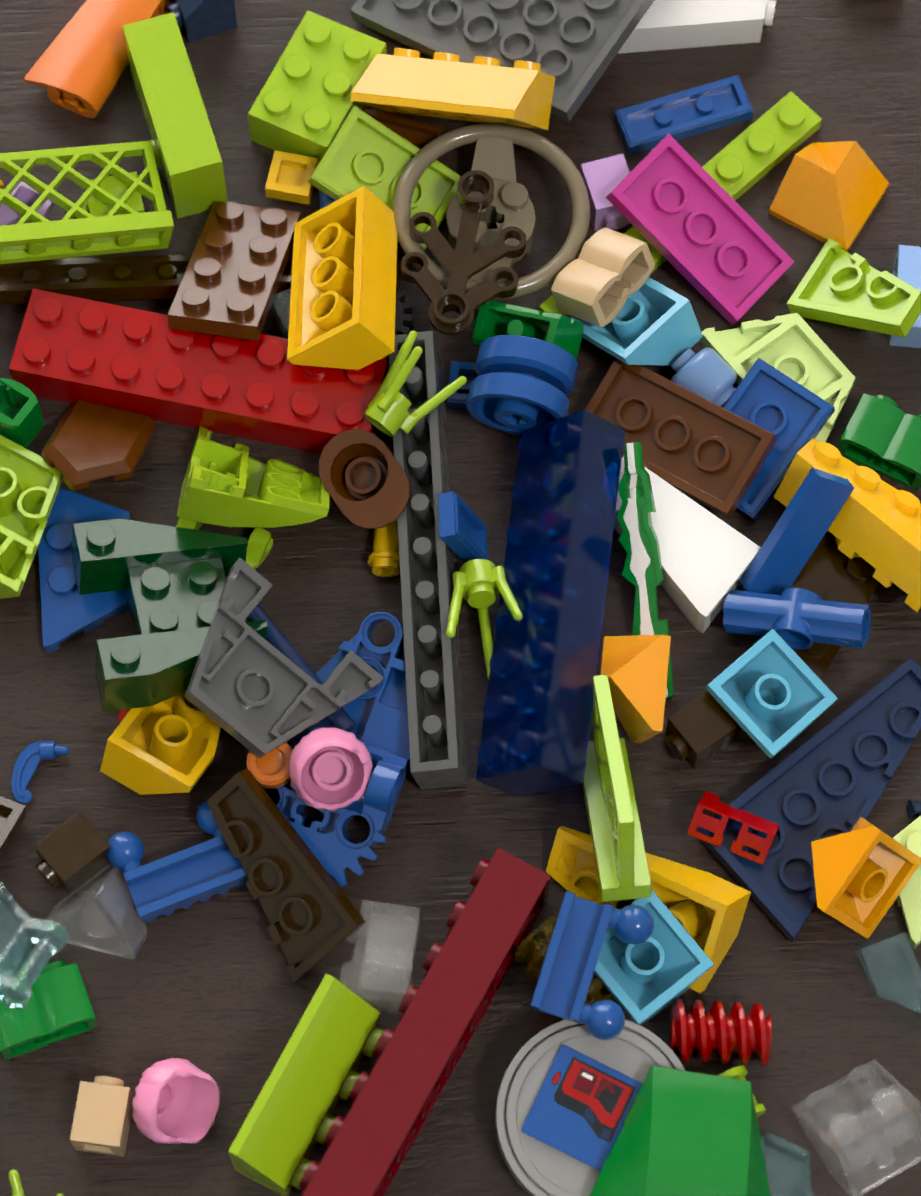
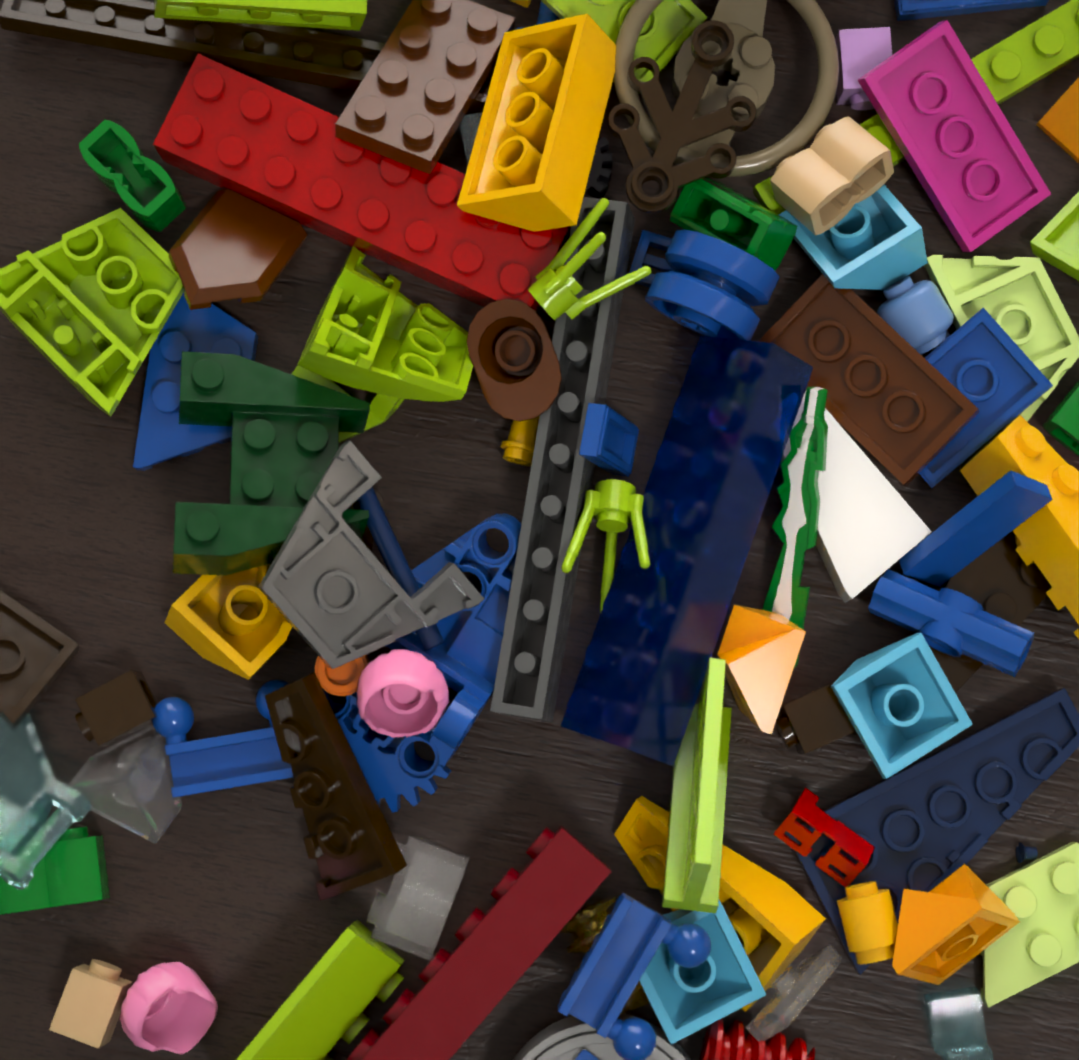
camera: 15 degrees right, 15 degrees up
(28, 763) = (92, 593): blue piece -> none
(737, 958) = (792, 992): none -> clear plate
(789, 883) = (869, 922): none -> yellow brick

